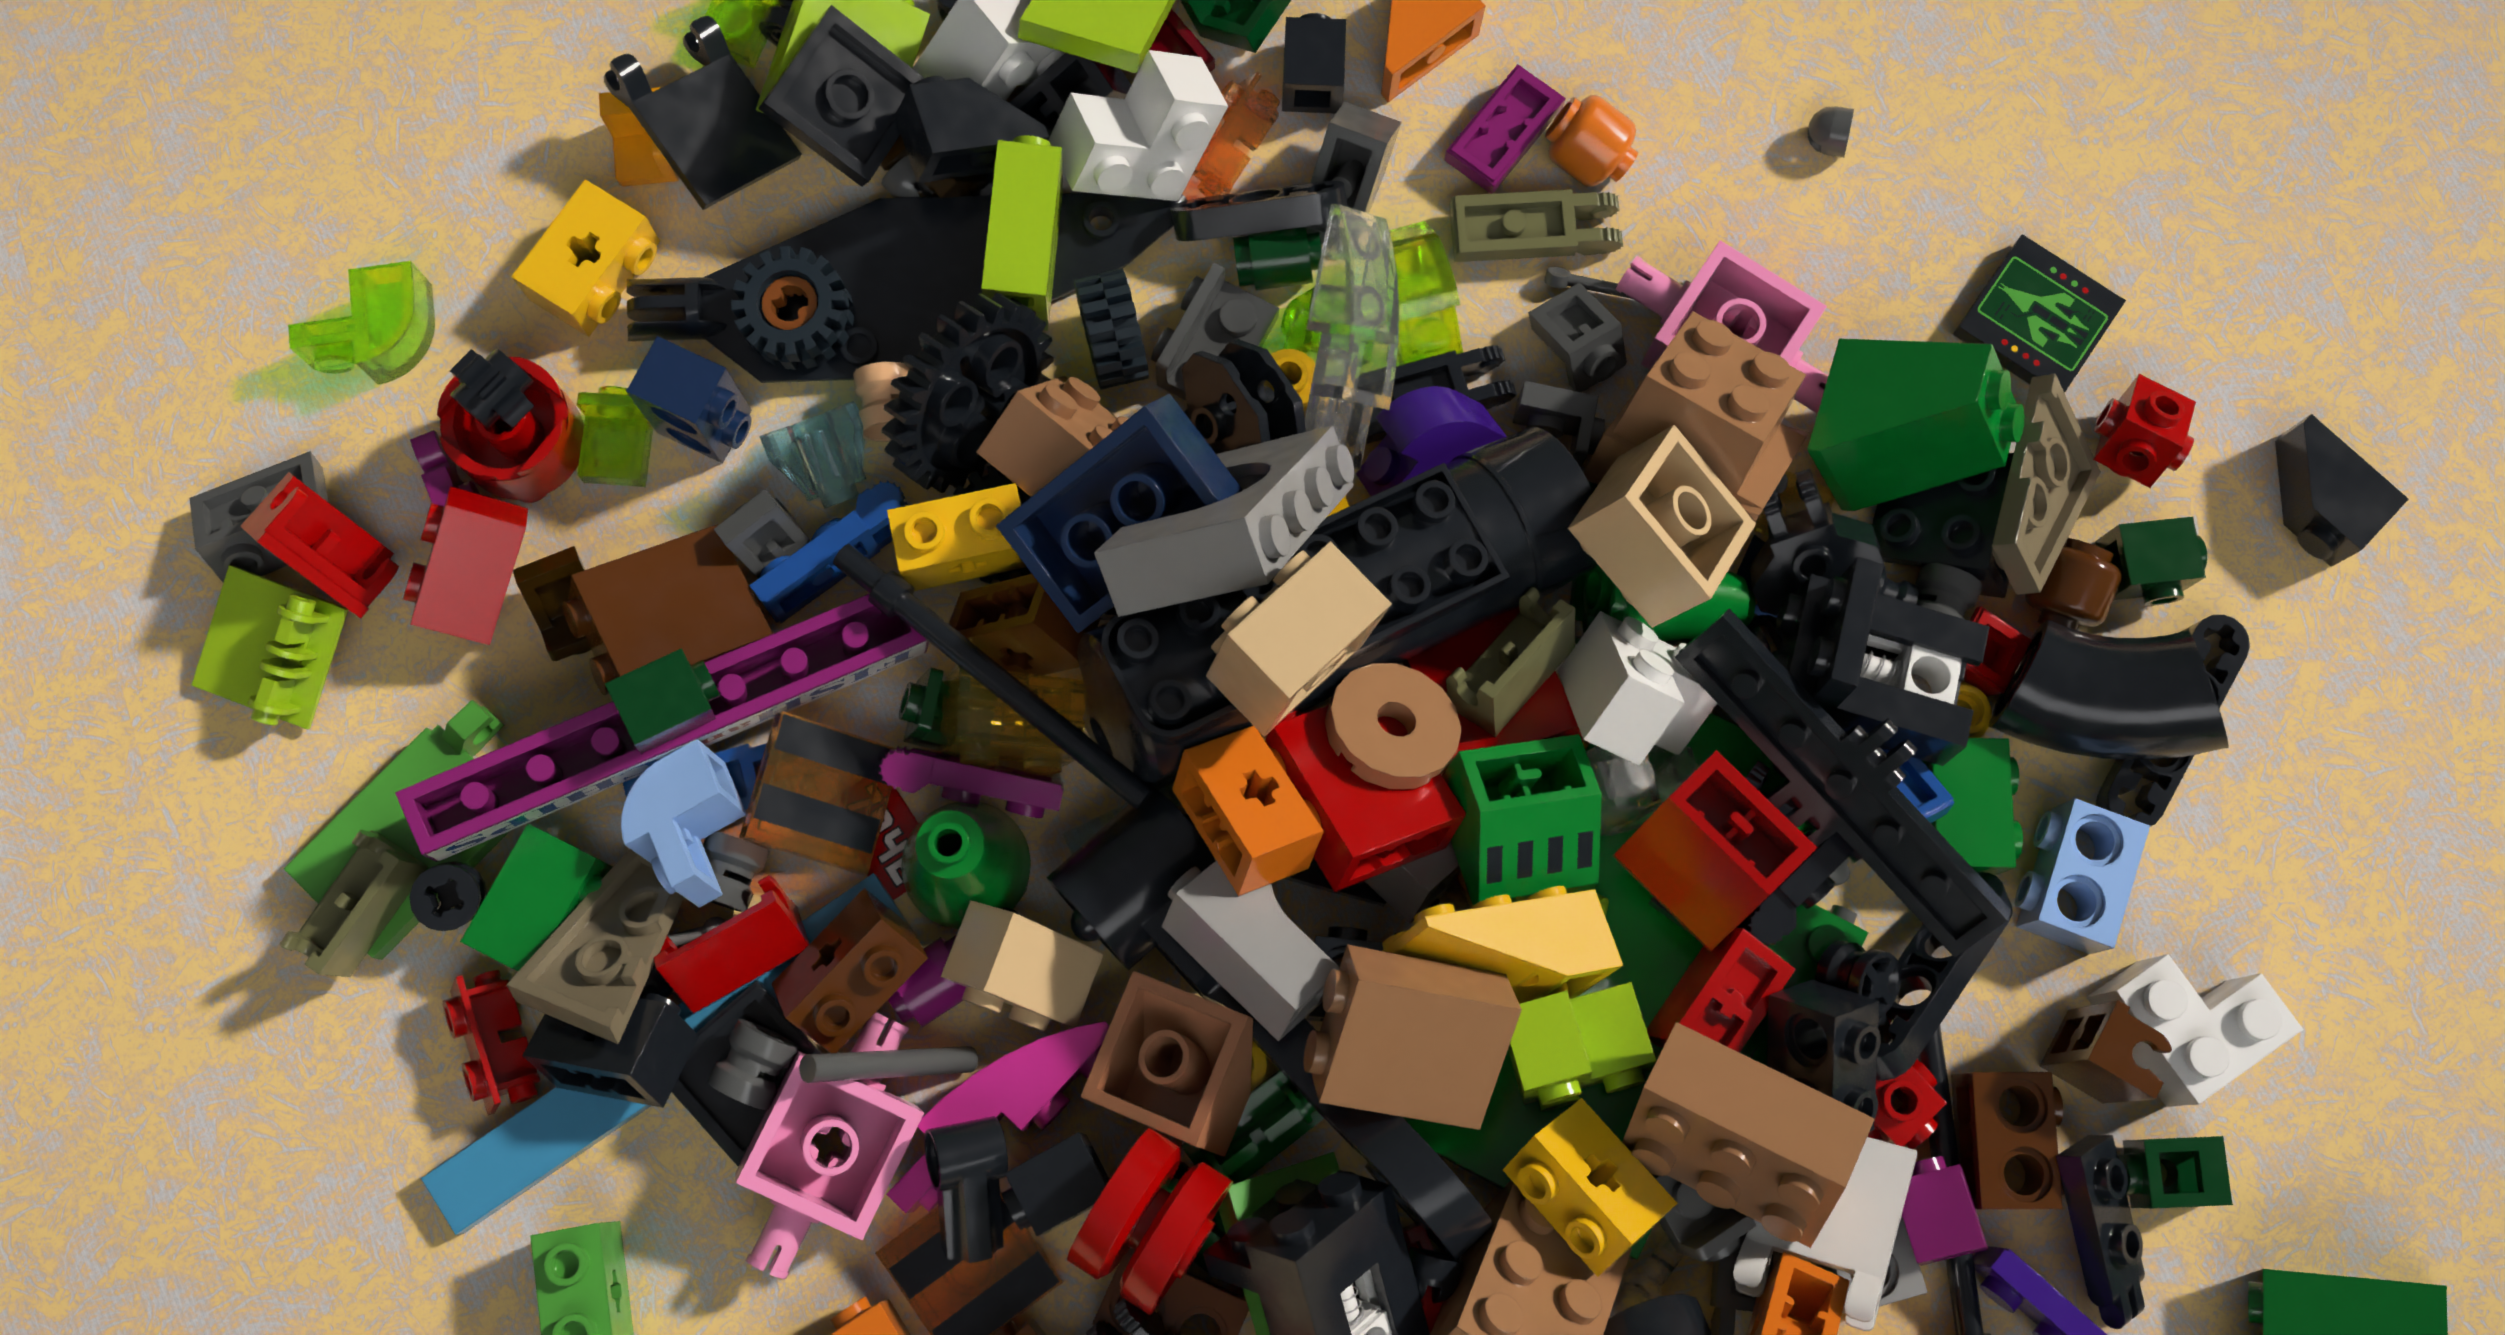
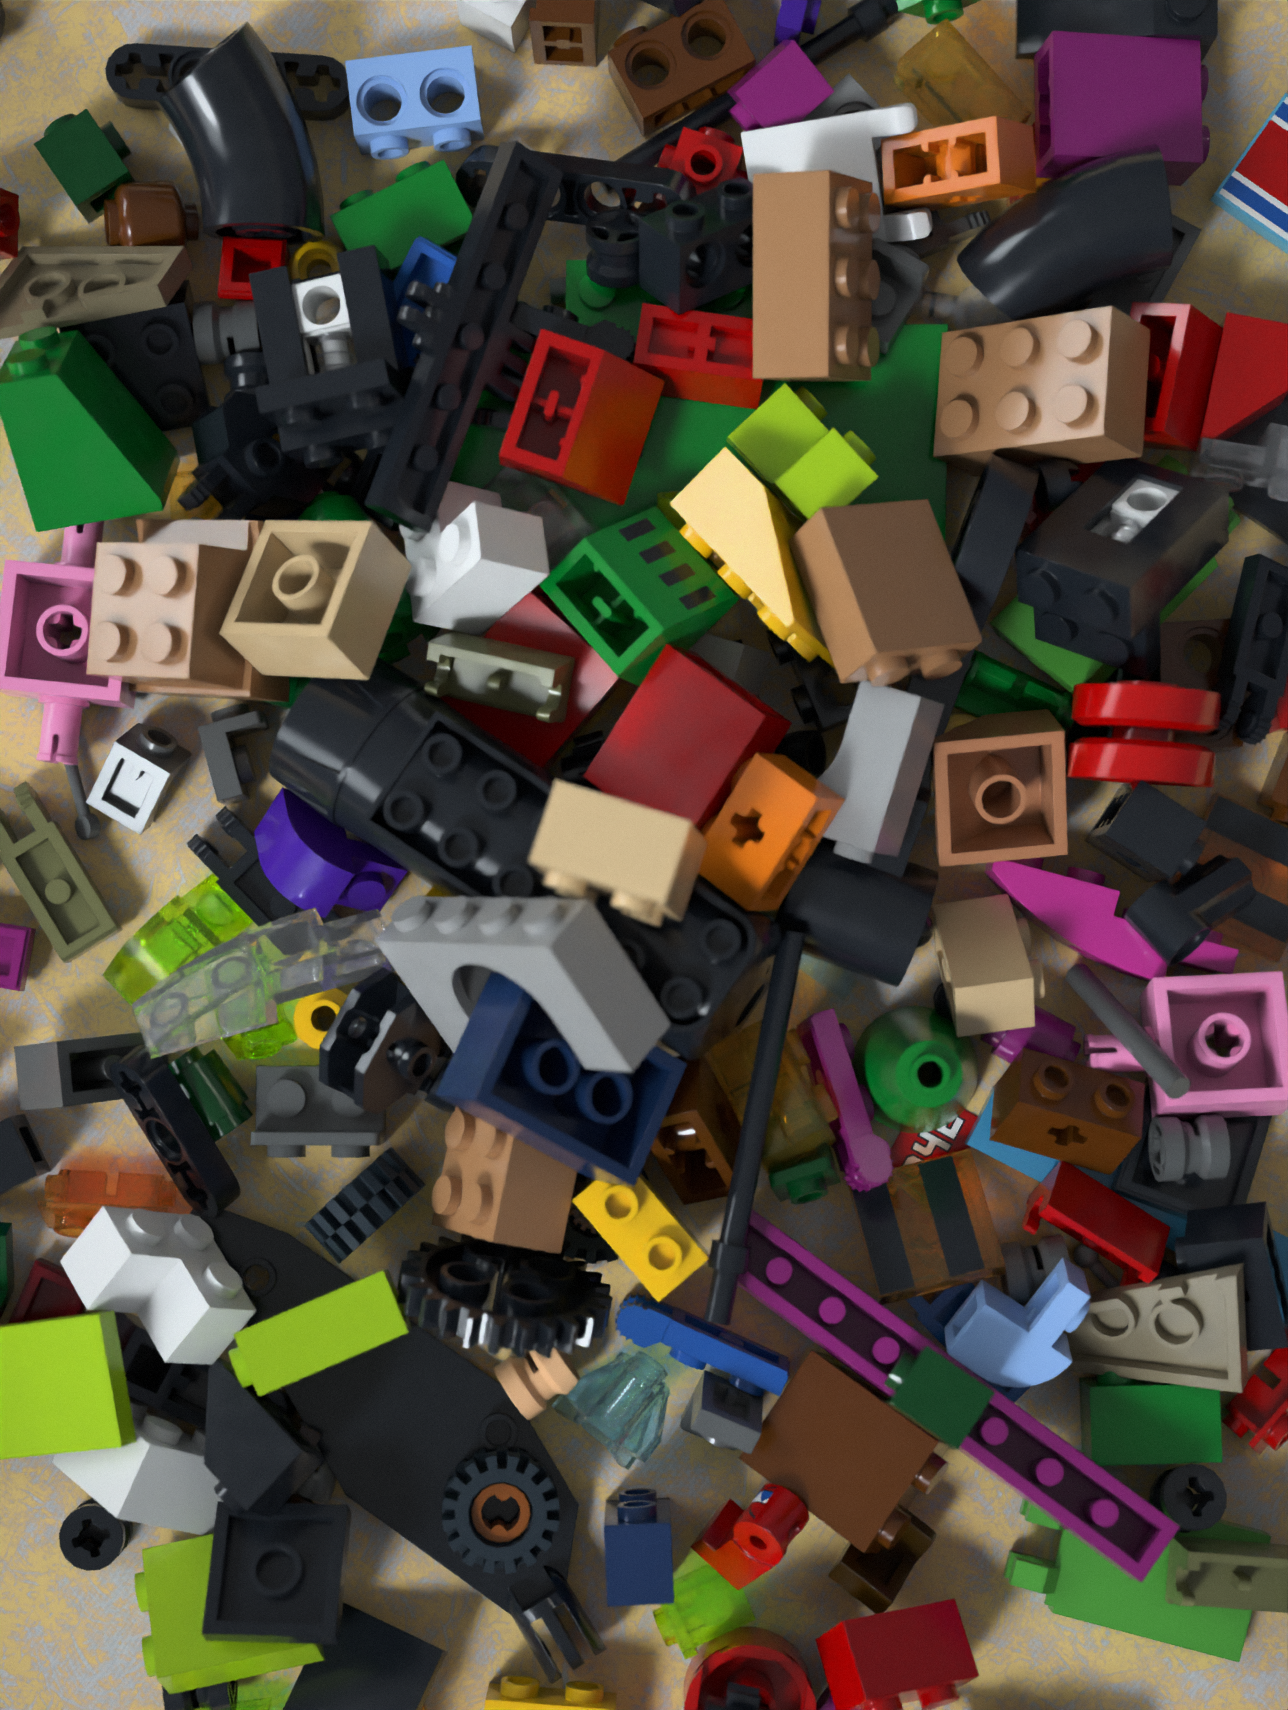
camera: 110 degrees left, 10 degrees up
(647, 500) = (751, 1540): none -> red leg
(1305, 908) = (805, 749): none -> black hinge
(1410, 699) = (595, 721): medium nougat tile -> none
(1589, 1186) = (919, 388): yellow brick -> none

